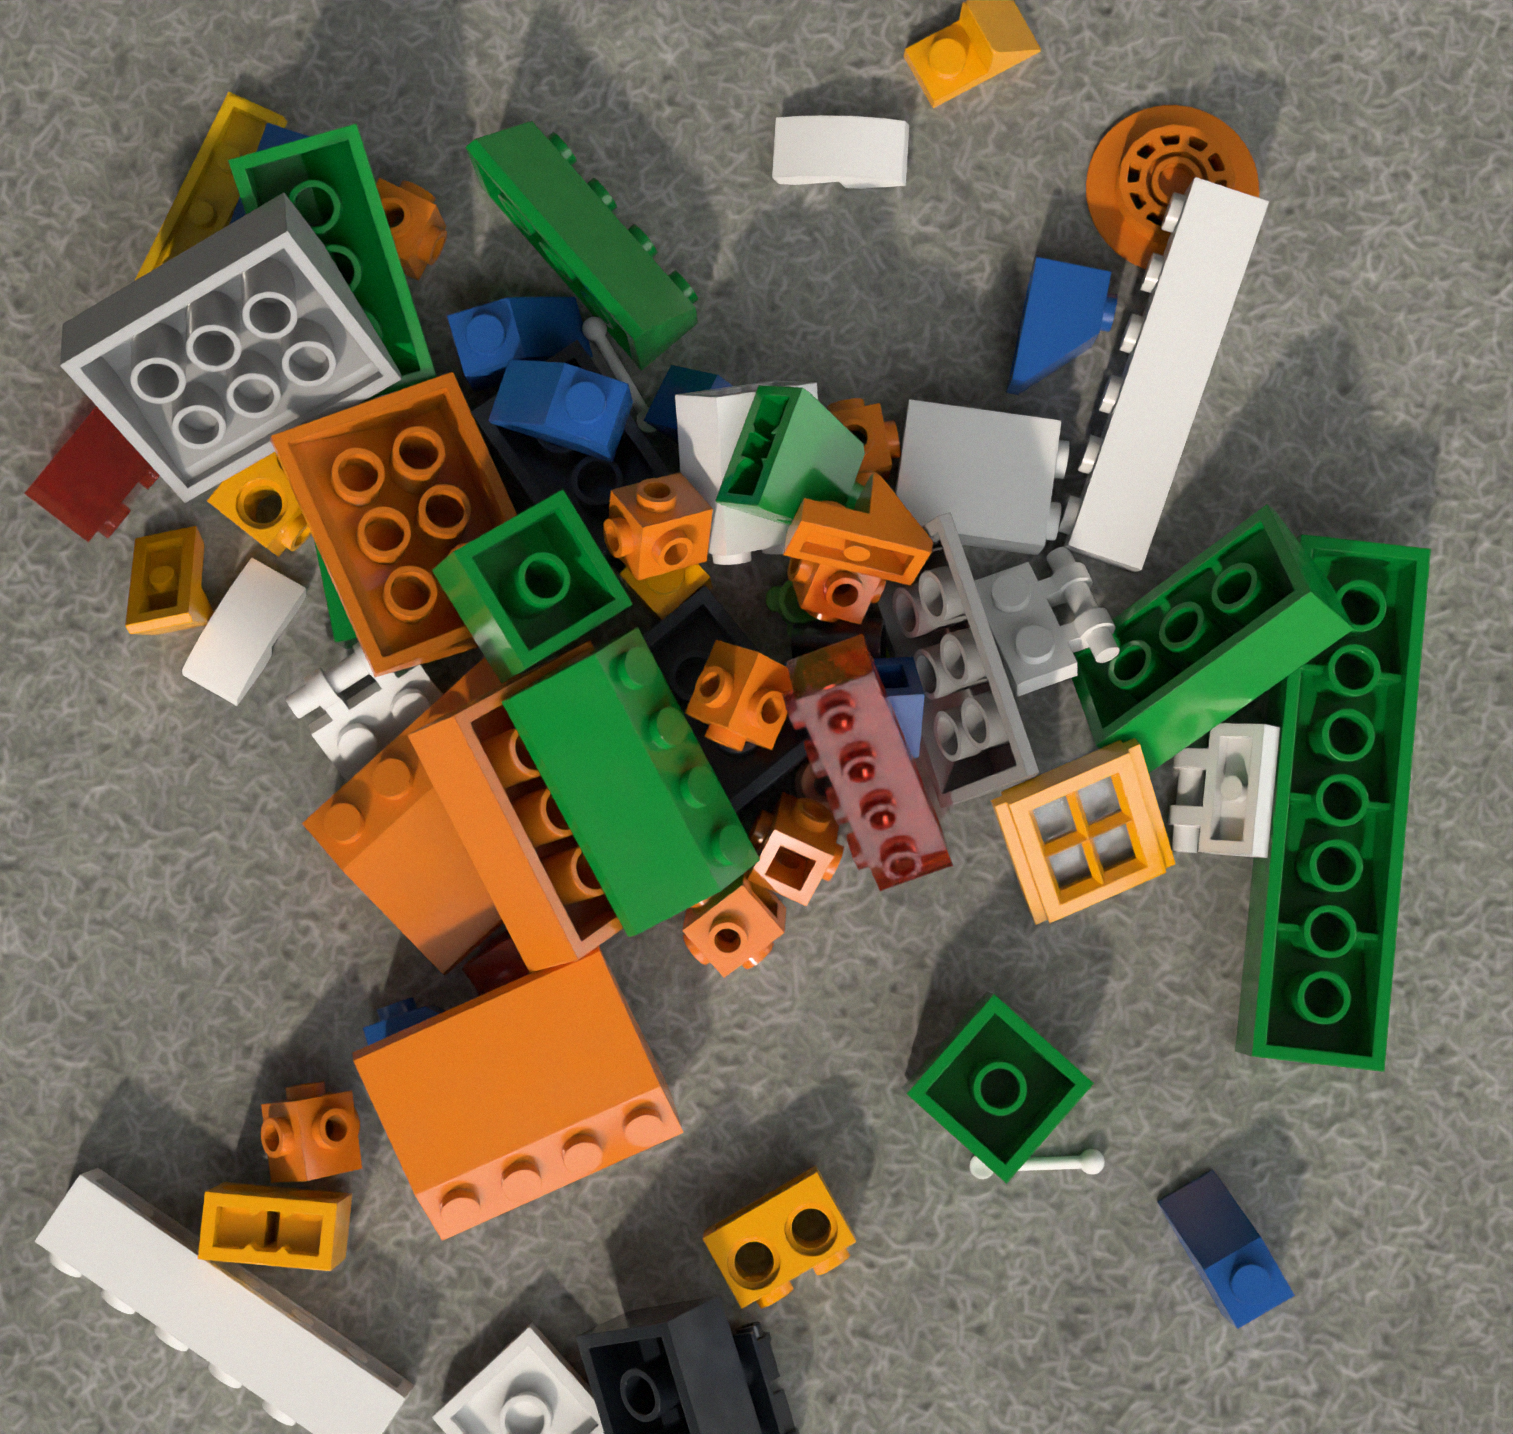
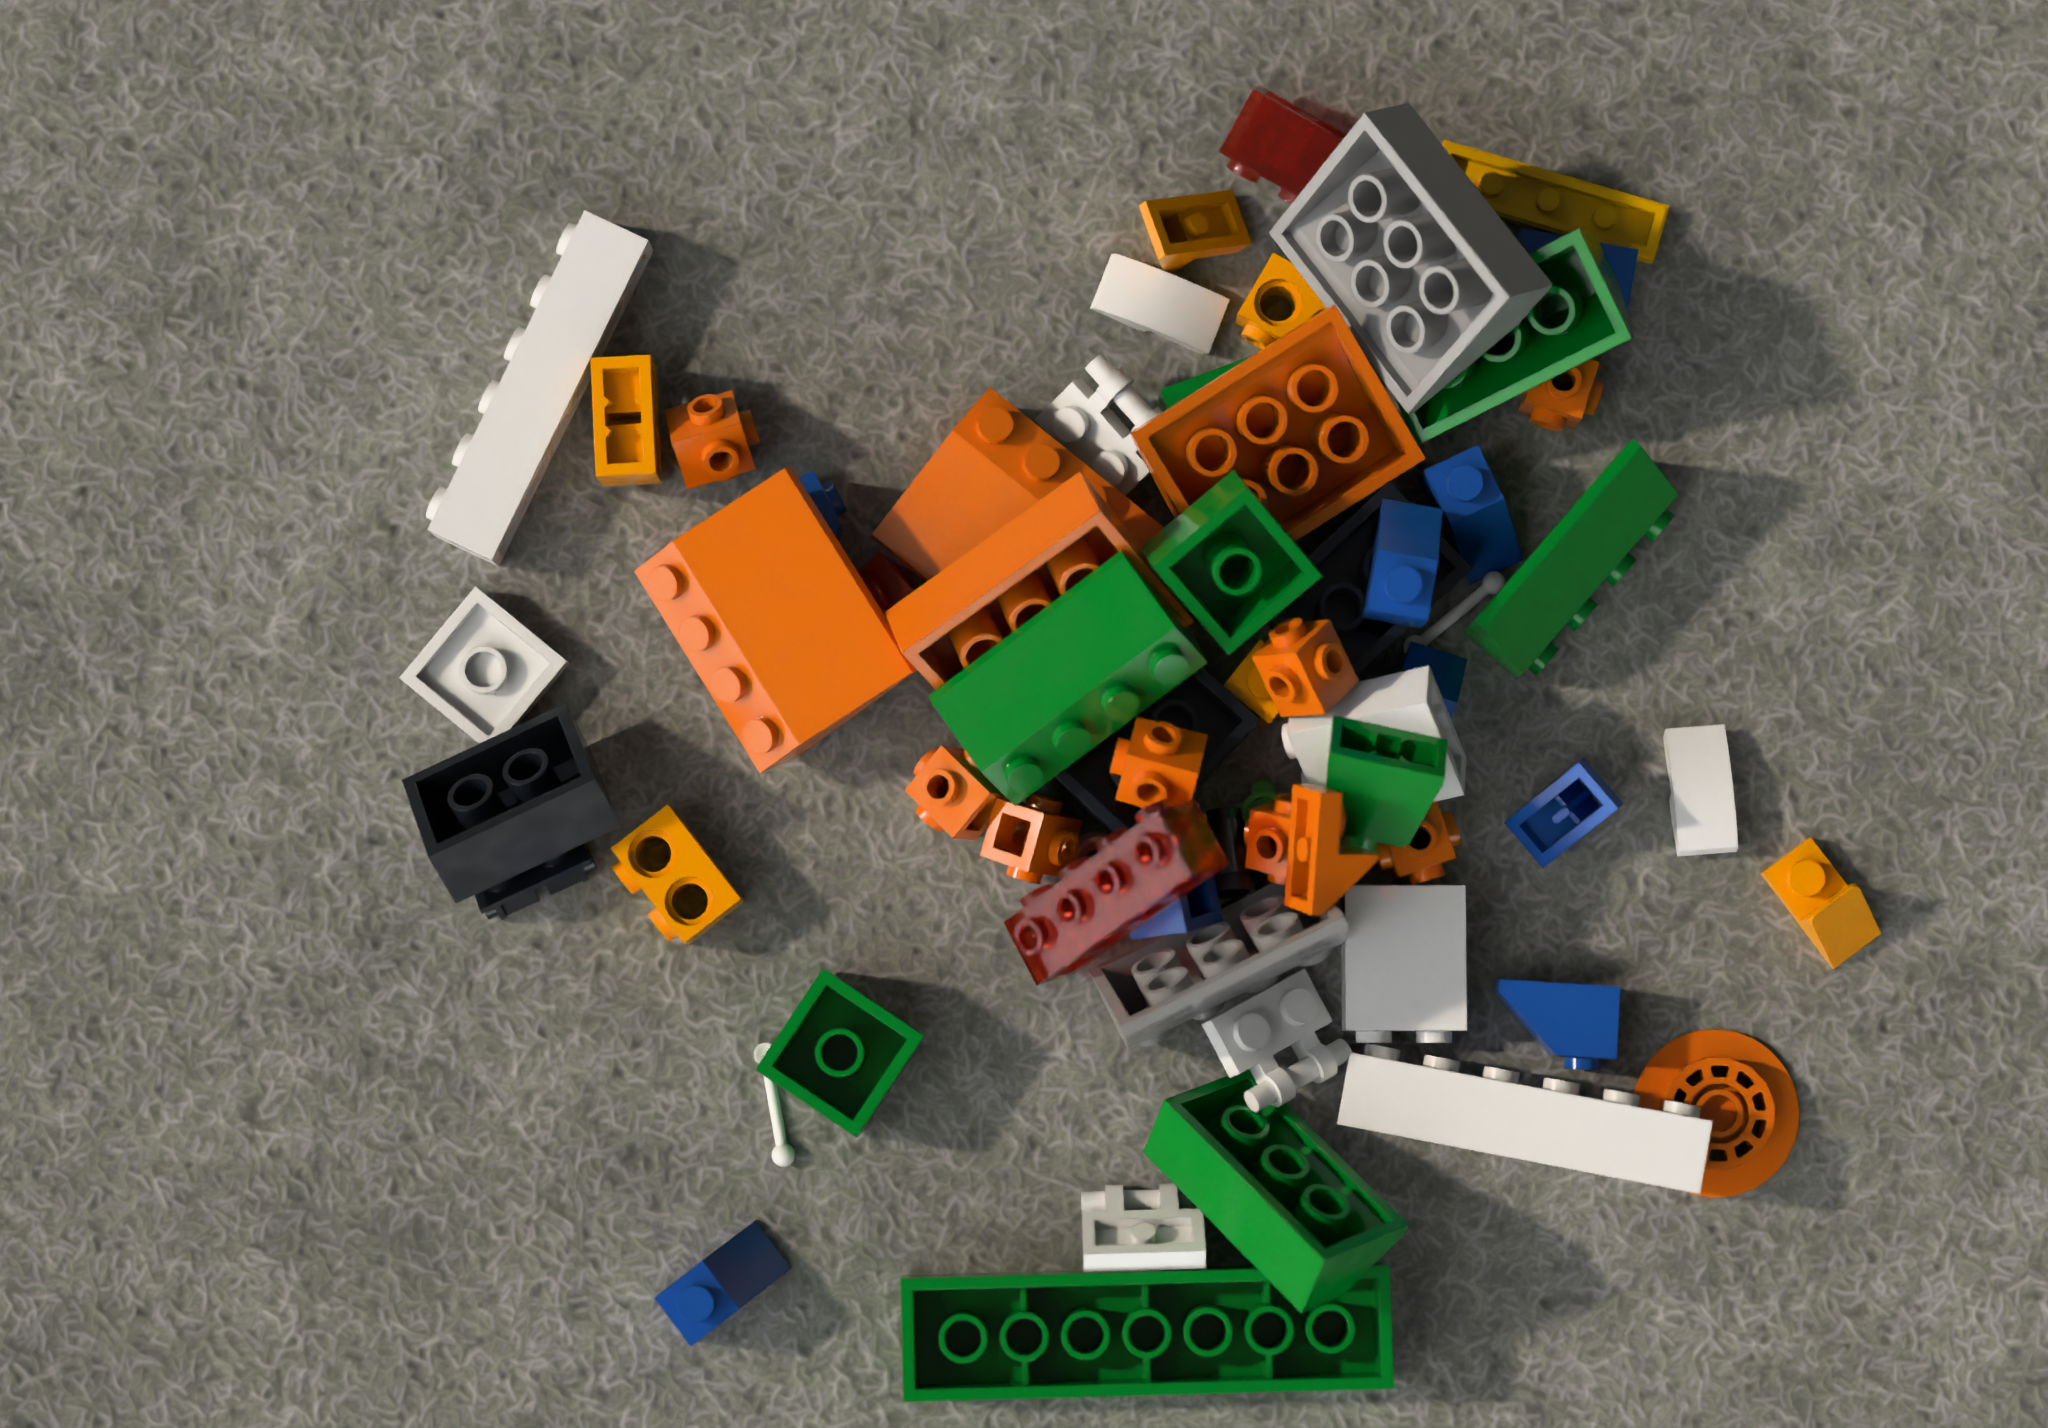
camera: 80 degrees right, 0 degrees up
(843, 289) = (1563, 812): none -> blue slope
(1084, 831) = (1084, 1103): light orange piece -> none

